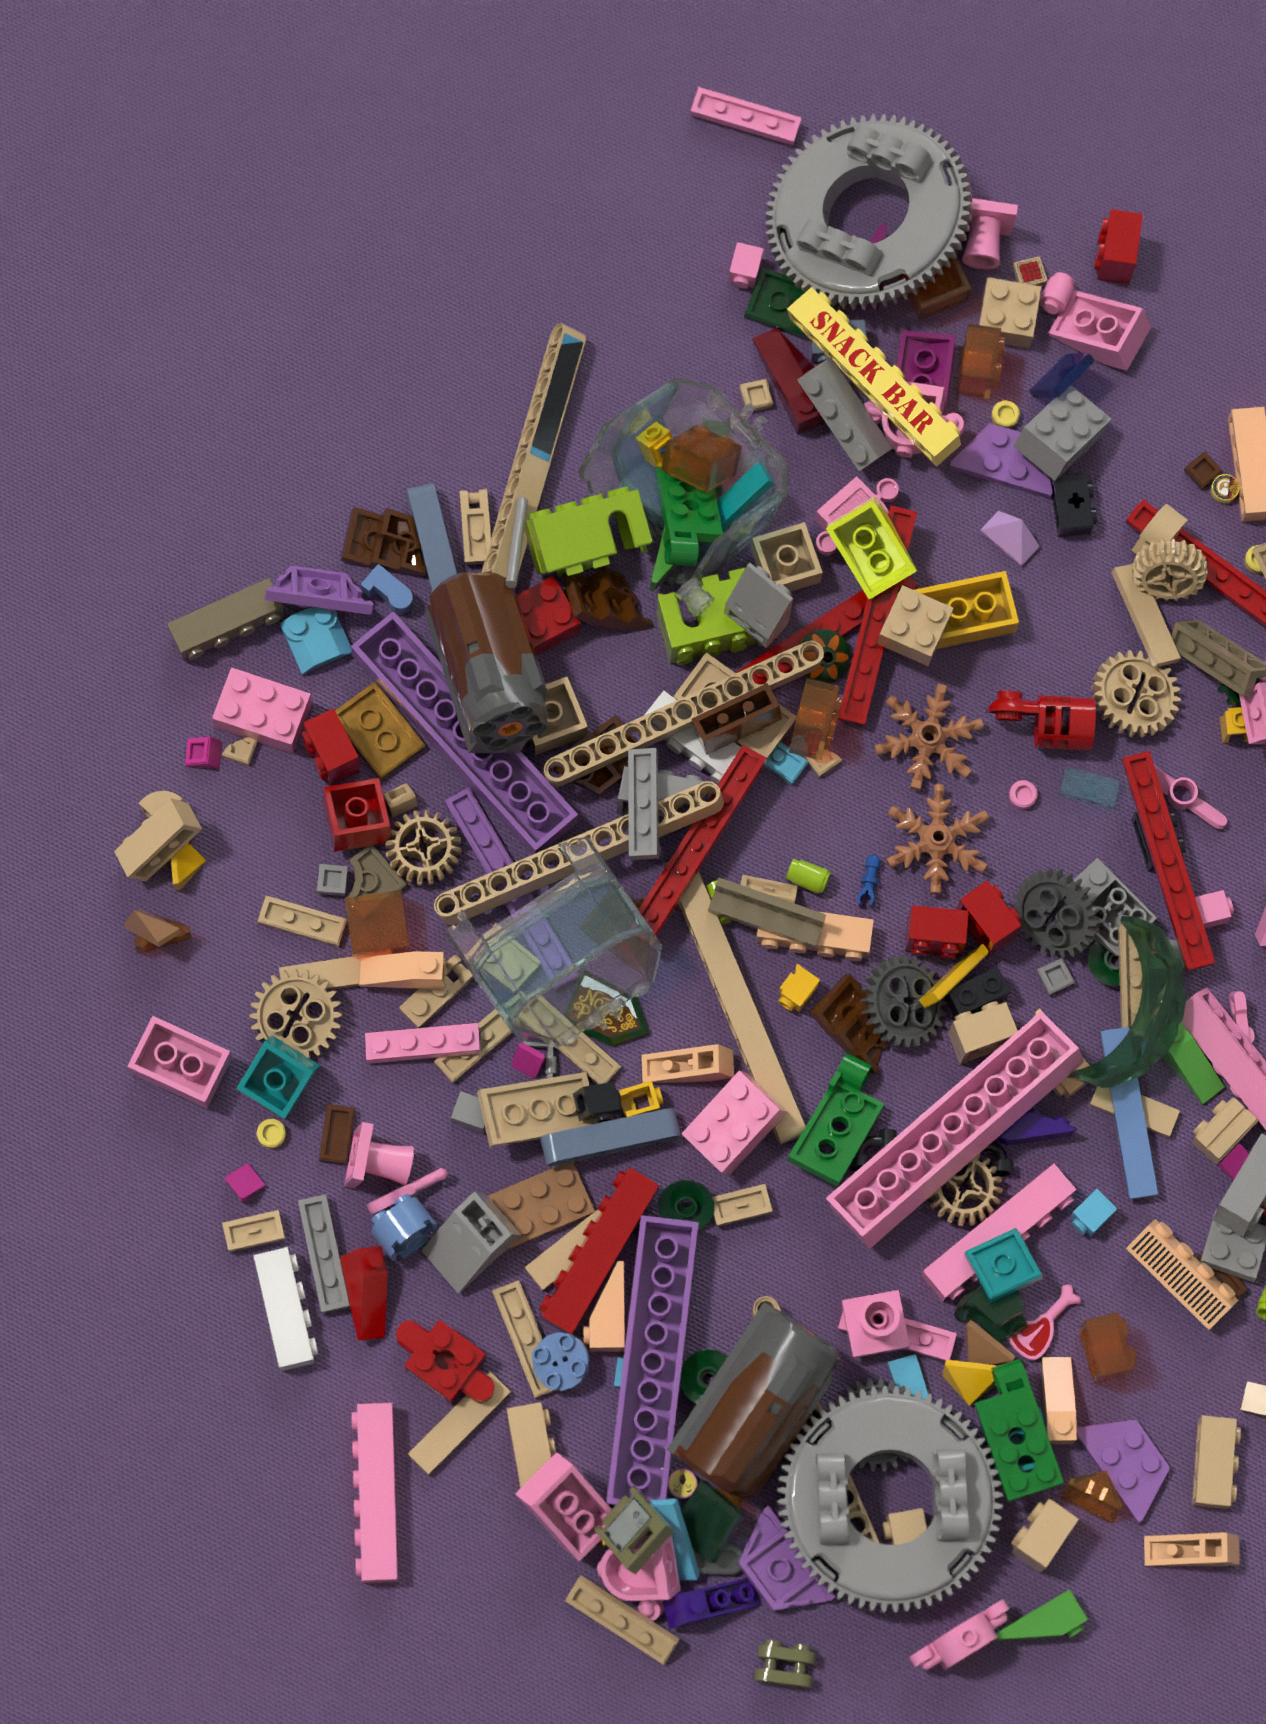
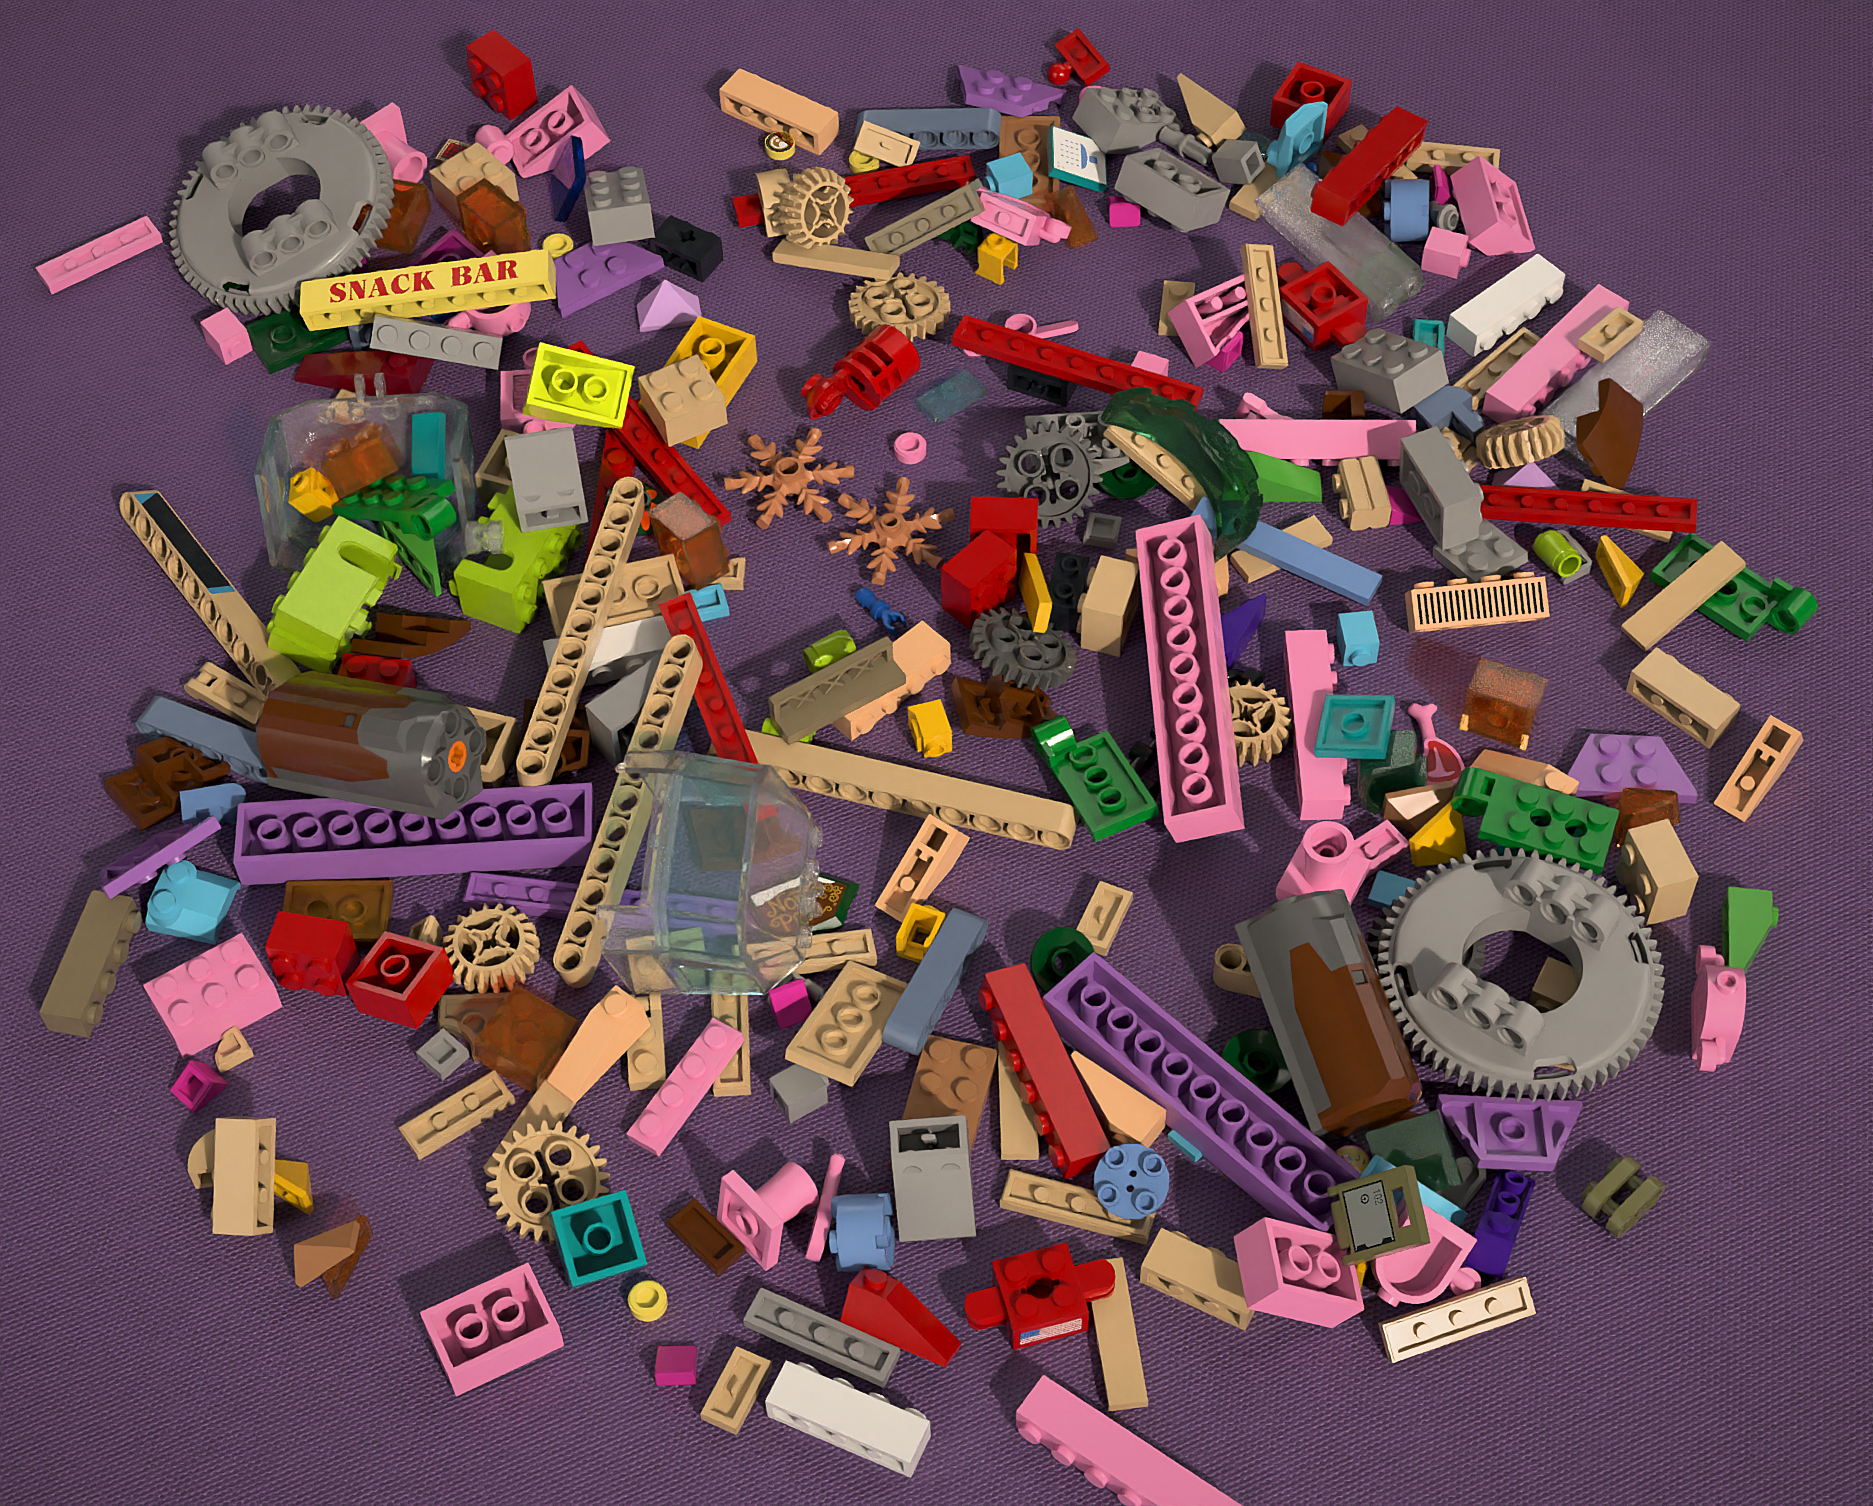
camera: 45 degrees left, 20 degrees down
(516, 543) = (284, 647): light grey bar -> none
(597, 1102) = (890, 964): black brick -> none
(643, 803) = (639, 705): light grey plate -> none
(734, 1122) = (1018, 858): bright pink brick -> none
(736, 718) = (630, 589): reddish brown brick -> none
(1203, 470) = (749, 150): reddish brown tile -> none

